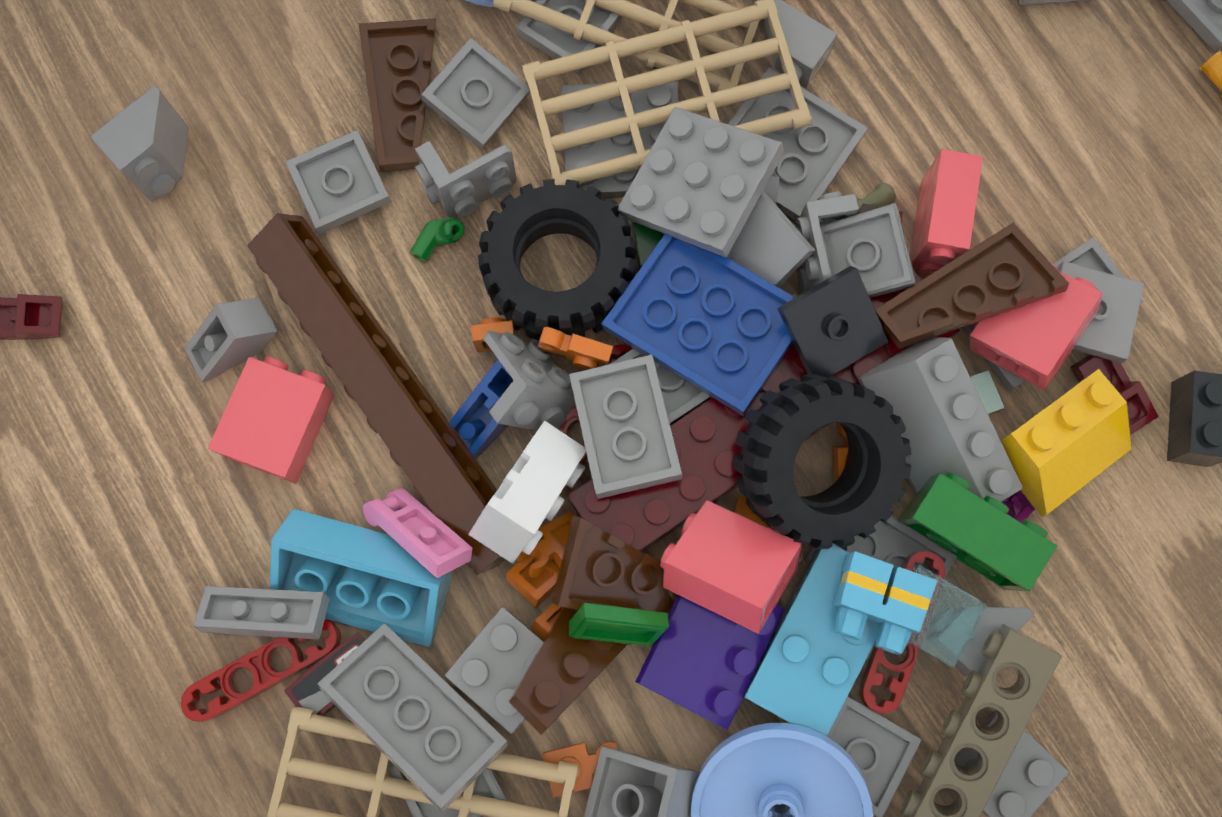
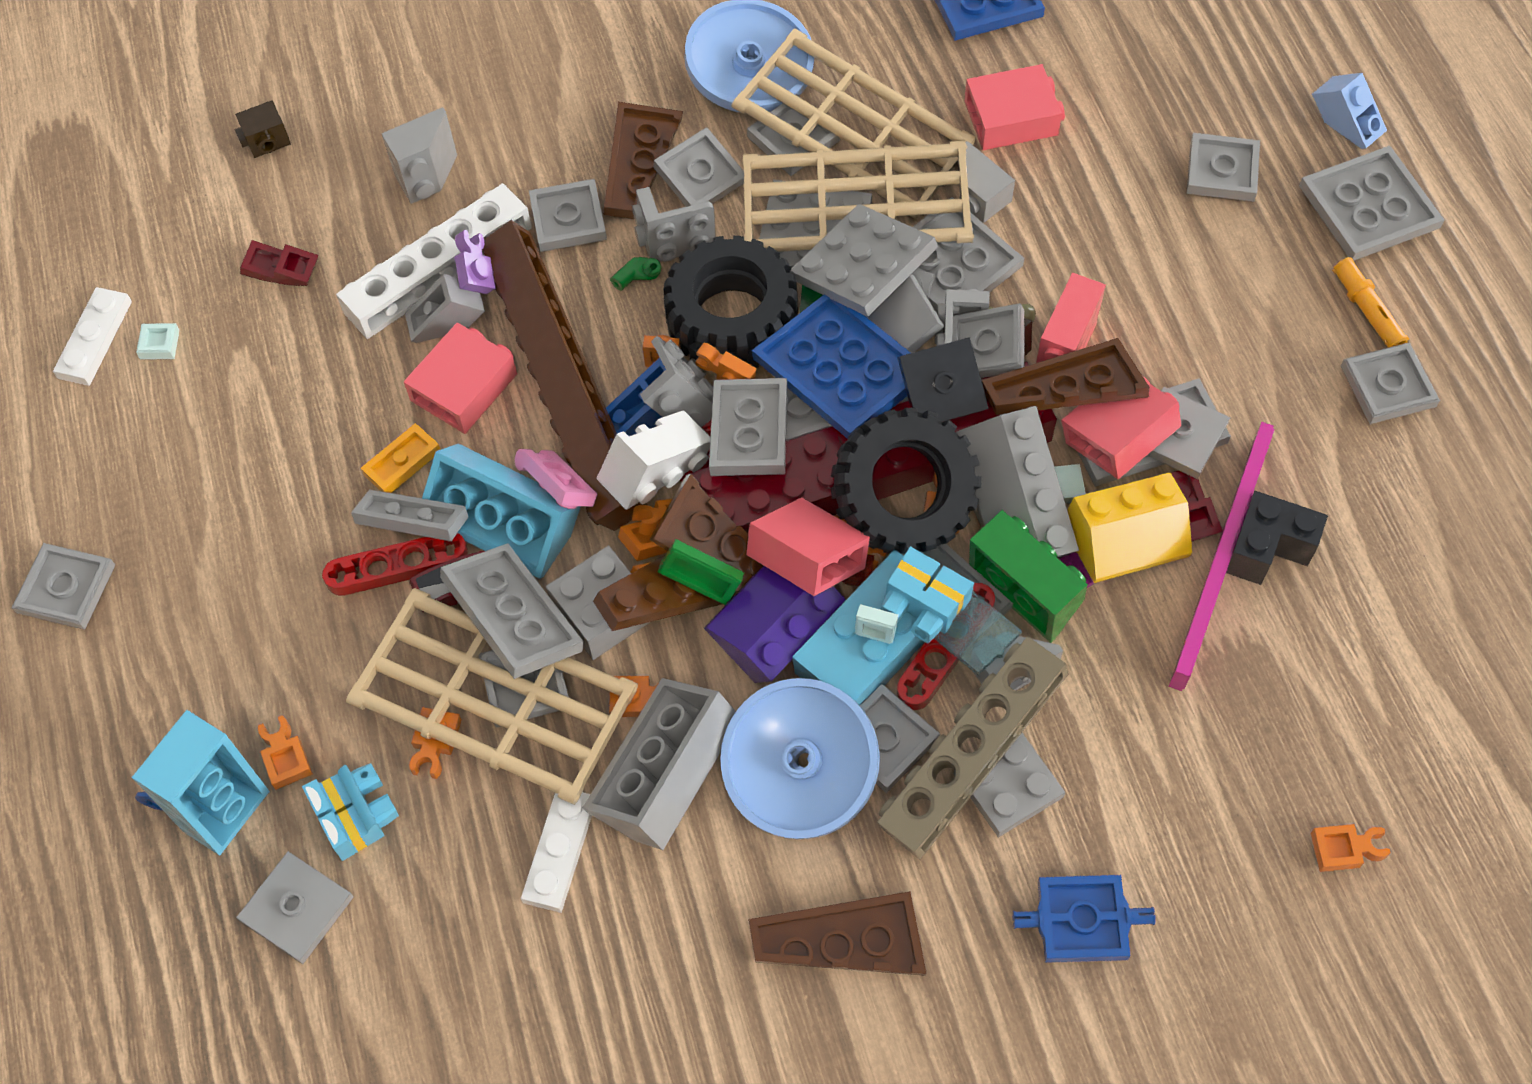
camera: 15 degrees right, 15 degrees down
(196, 296) = (405, 277): none -> white brick
(231, 539) = (400, 459): none -> light orange plate
(248, 284) = (472, 267): none -> medium lavender plate
(836, 650) = (876, 624): none -> light aqua tile
(1167, 450) = (1221, 558): none -> dark pink tile

